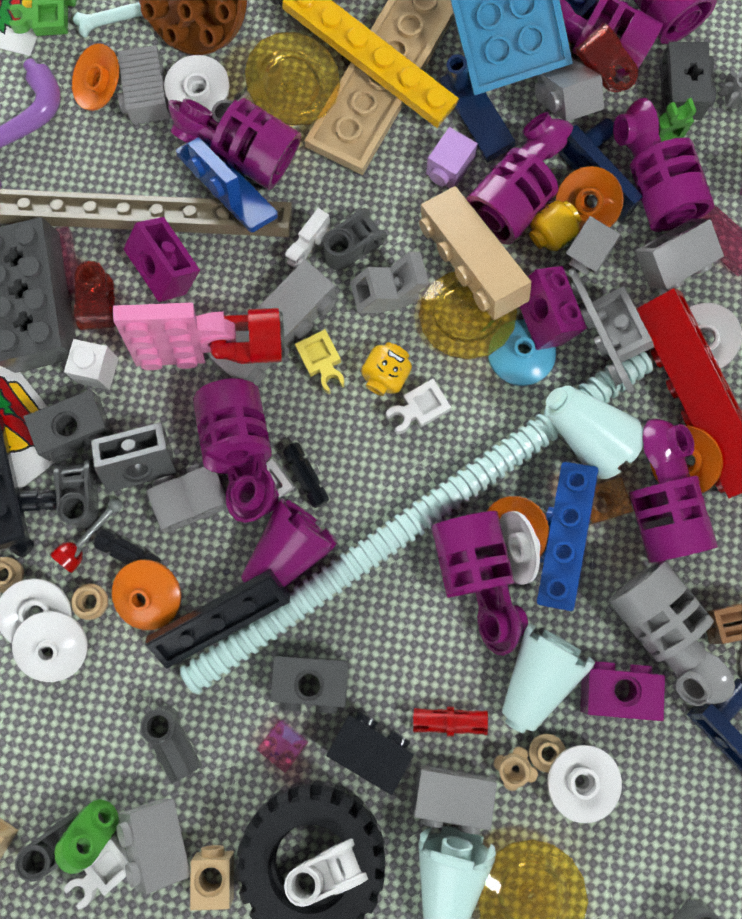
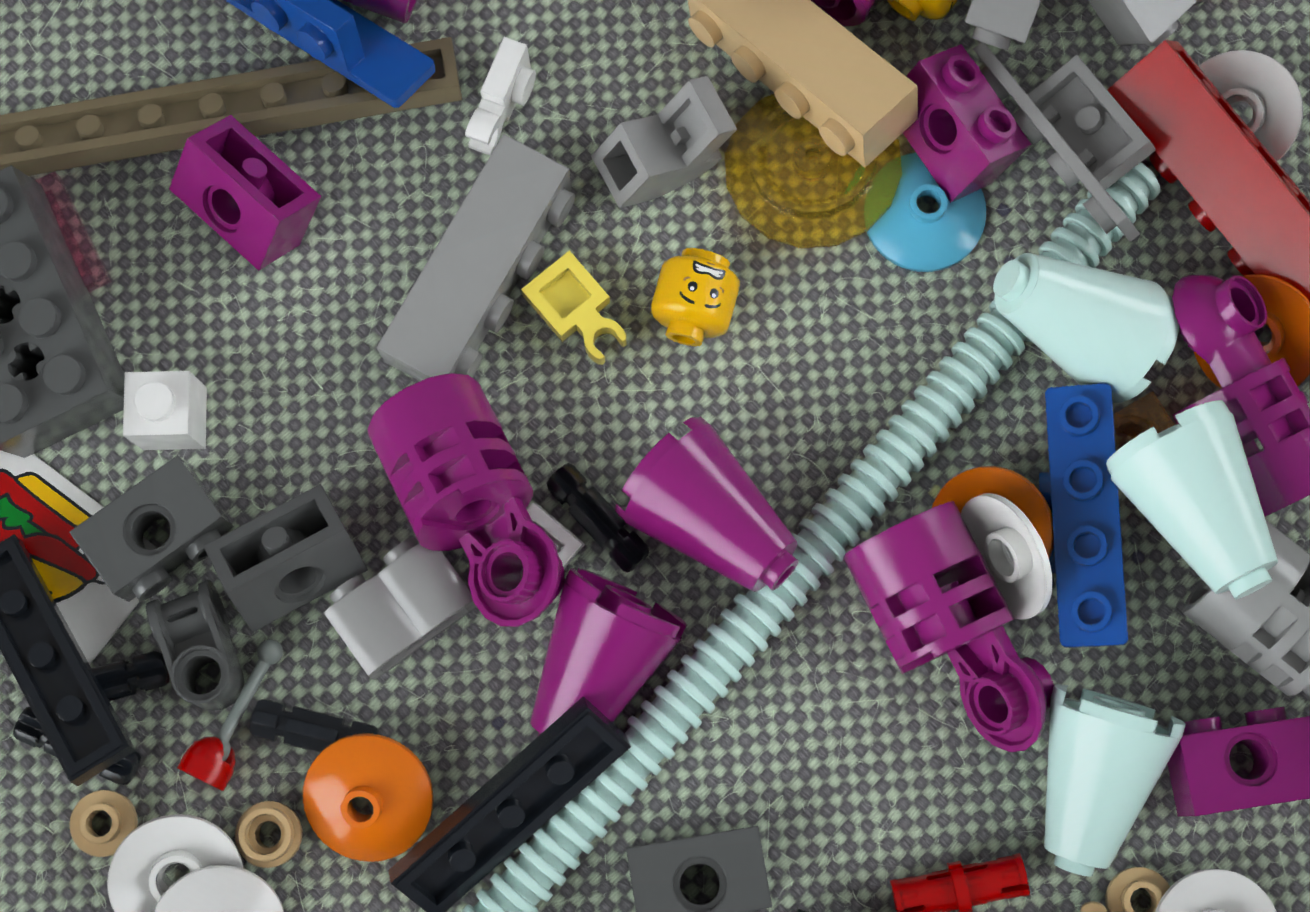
camera: 15 degrees left, 0 degrees up
(93, 302) = (141, 298): clear red piece -> none
(178, 337) = (324, 317): bright pink plate -> none
(356, 235) = (583, 70): dark grey piece -> none
(363, 483) = (709, 509): none -> magenta cone
(423, 404) = (774, 345): white plate -> none
(632, 540) = (1200, 497): none -> light aqua cone

